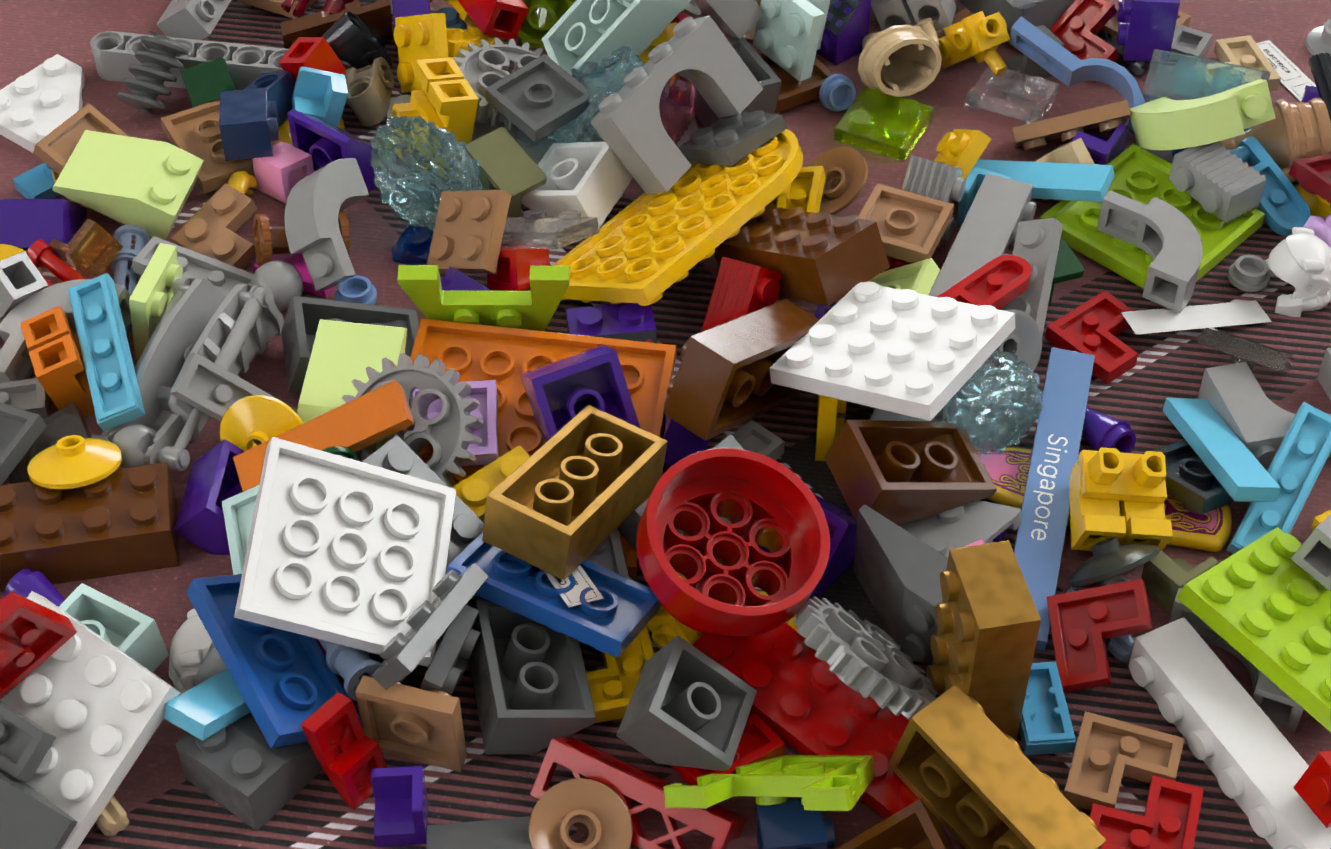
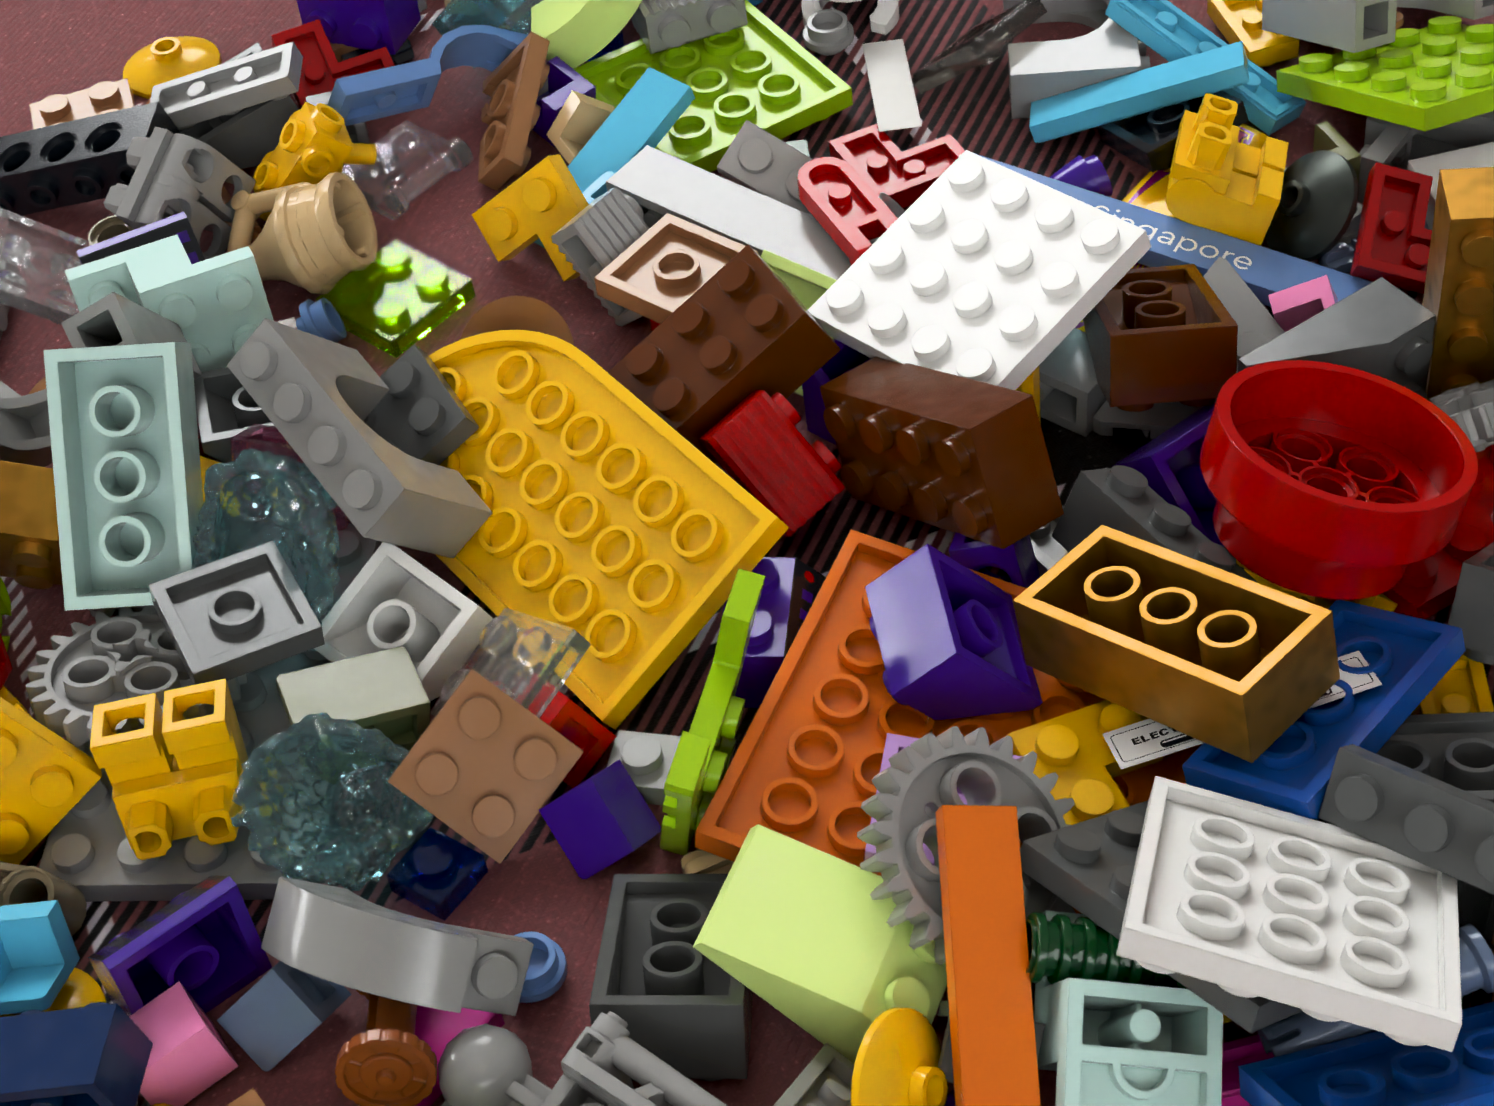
camera: 70 degrees left, 0 degrees up
(1164, 236) = (794, 58): light grey arch -> none

